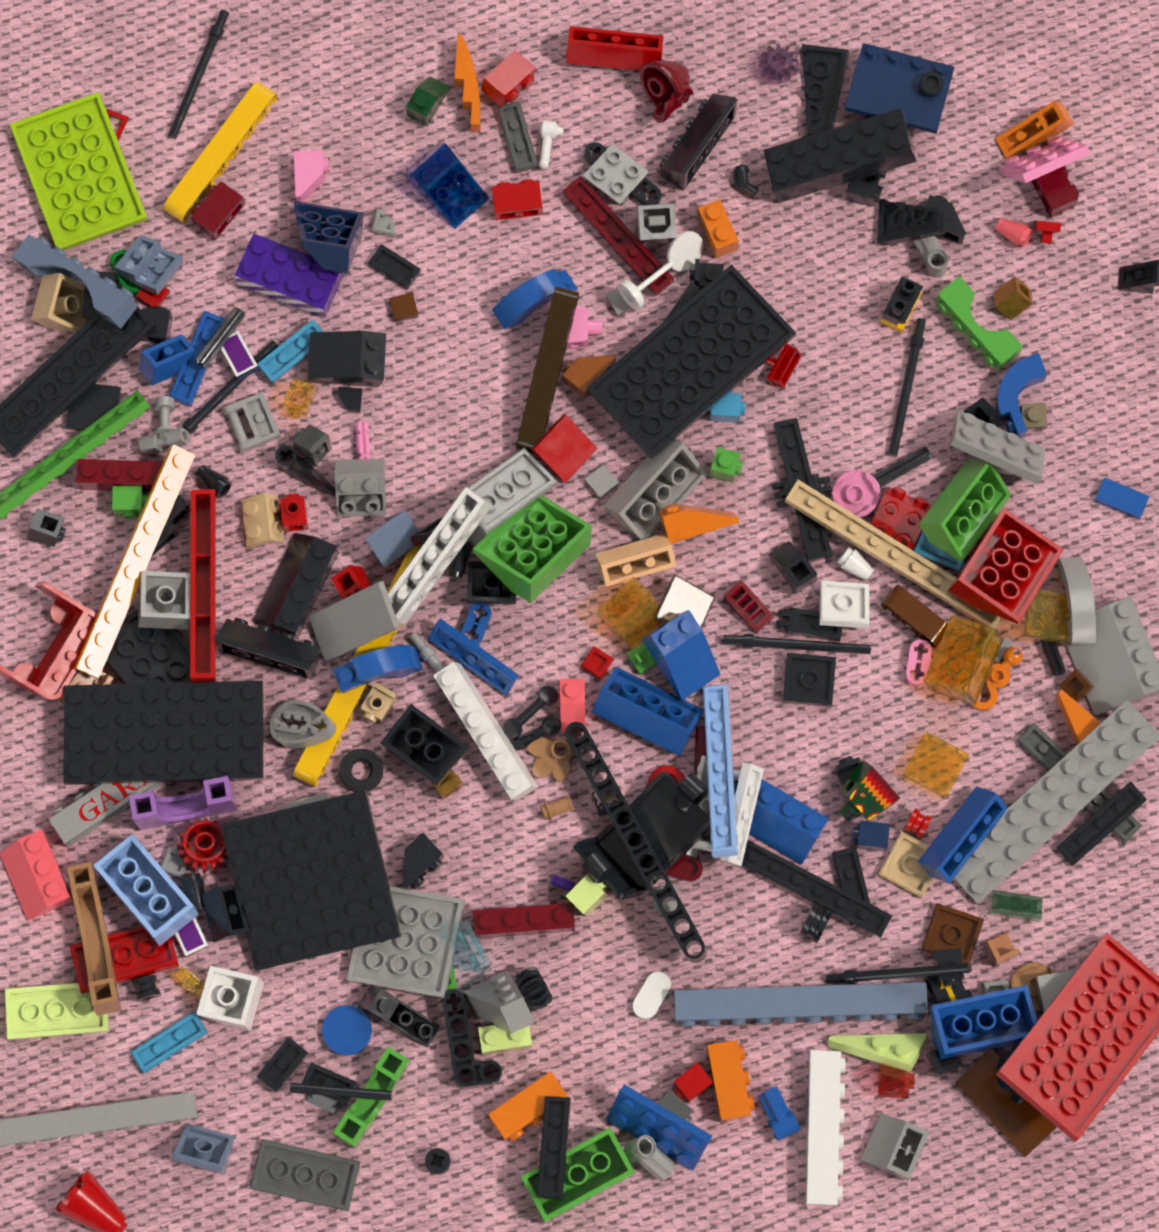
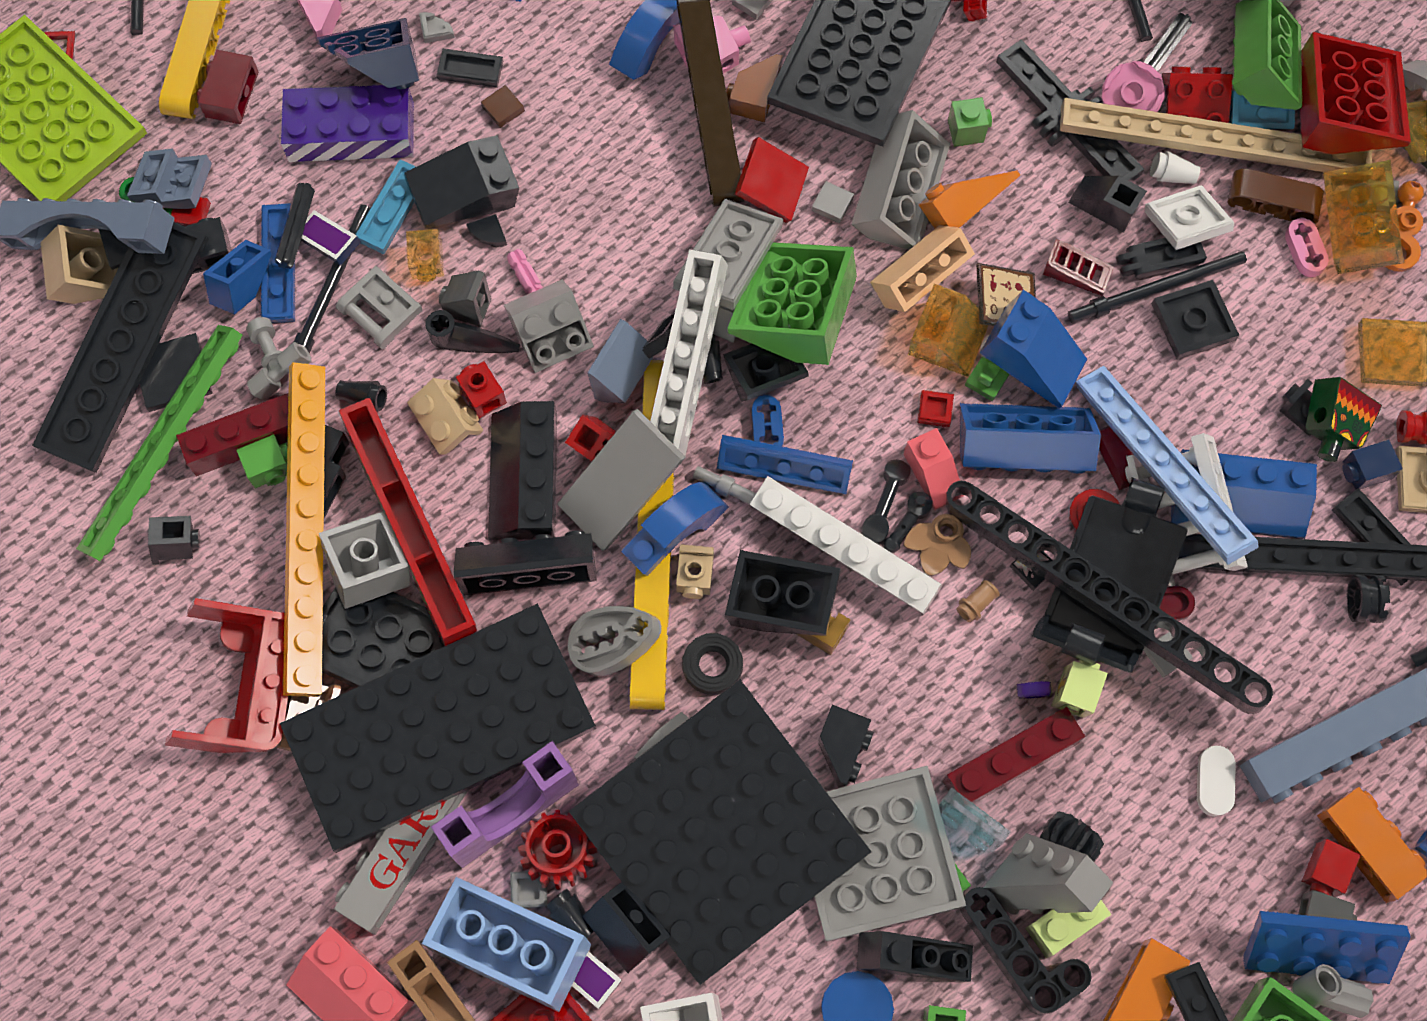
camera: 25 degrees left, 5 degrees down
(729, 409) = (939, 62): dark azure brick -> none

